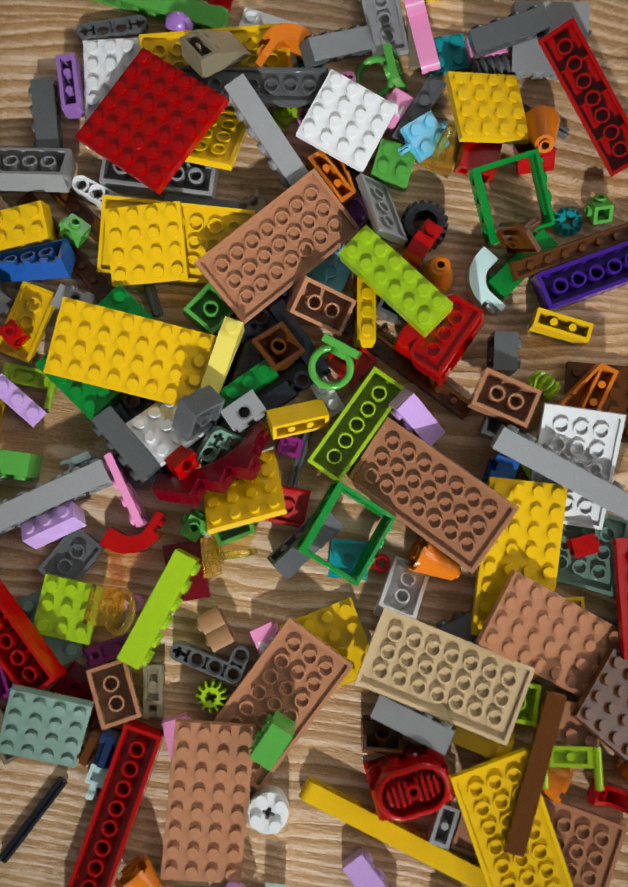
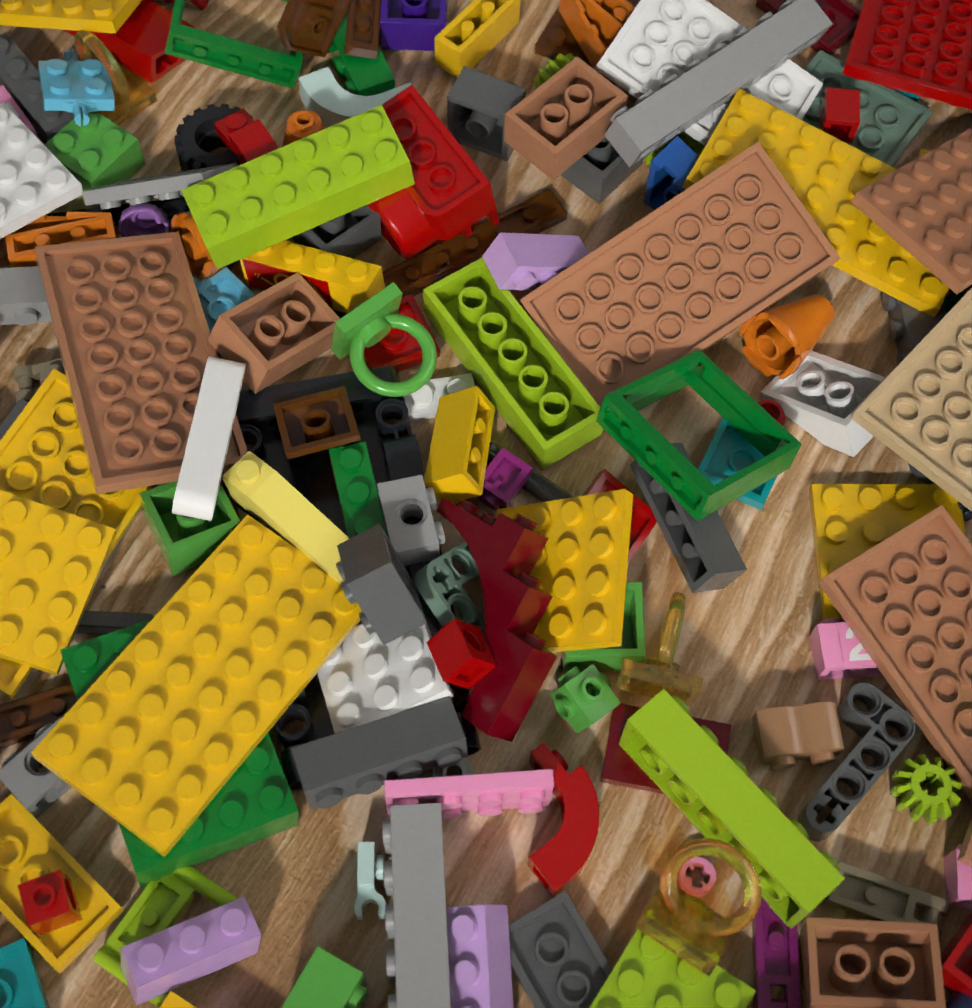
camera: 75 degrees left, 20 degrees down
(242, 301) = (209, 439): none -> white beam

